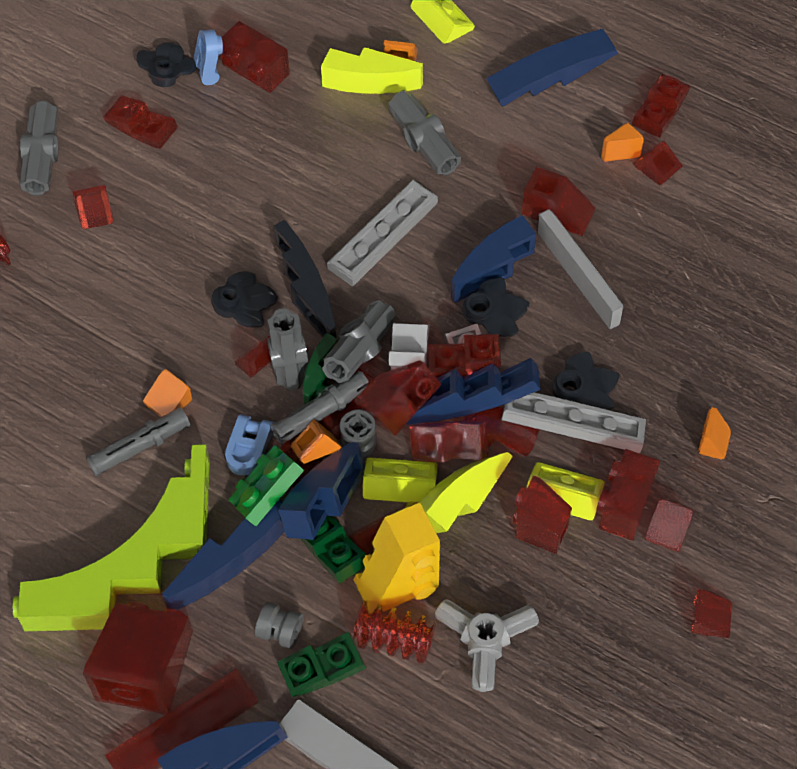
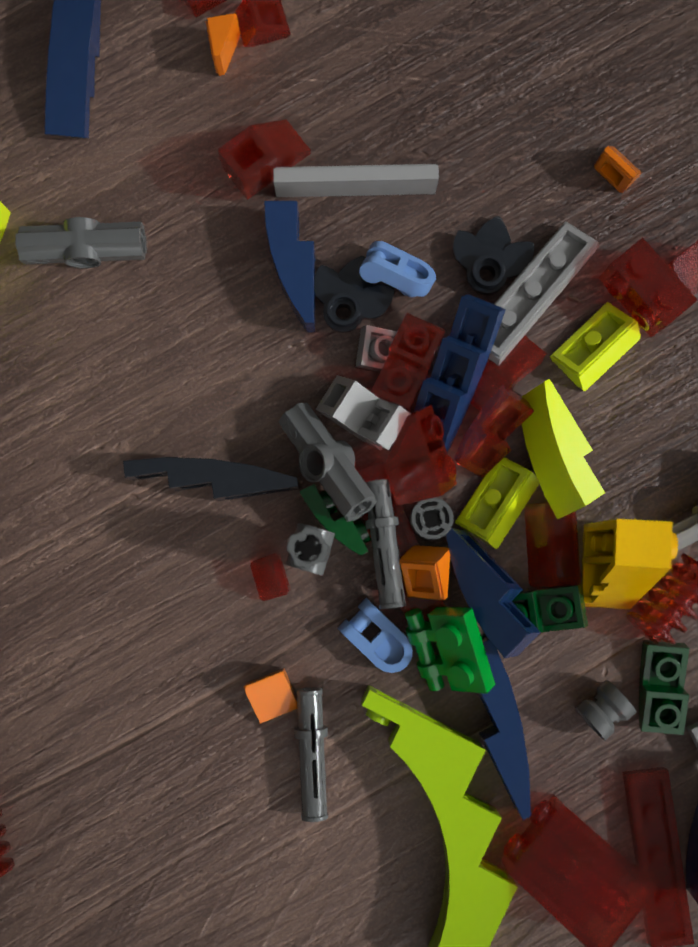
camera: 65 degrees left, 25 degrees up
(244, 299) = (191, 546): black plate -> none
(382, 233) = (186, 358): light grey tile -> none
(531, 324) = (397, 269): none -> medium blue plate
(541, 516) = (631, 390): clear red slope -> none

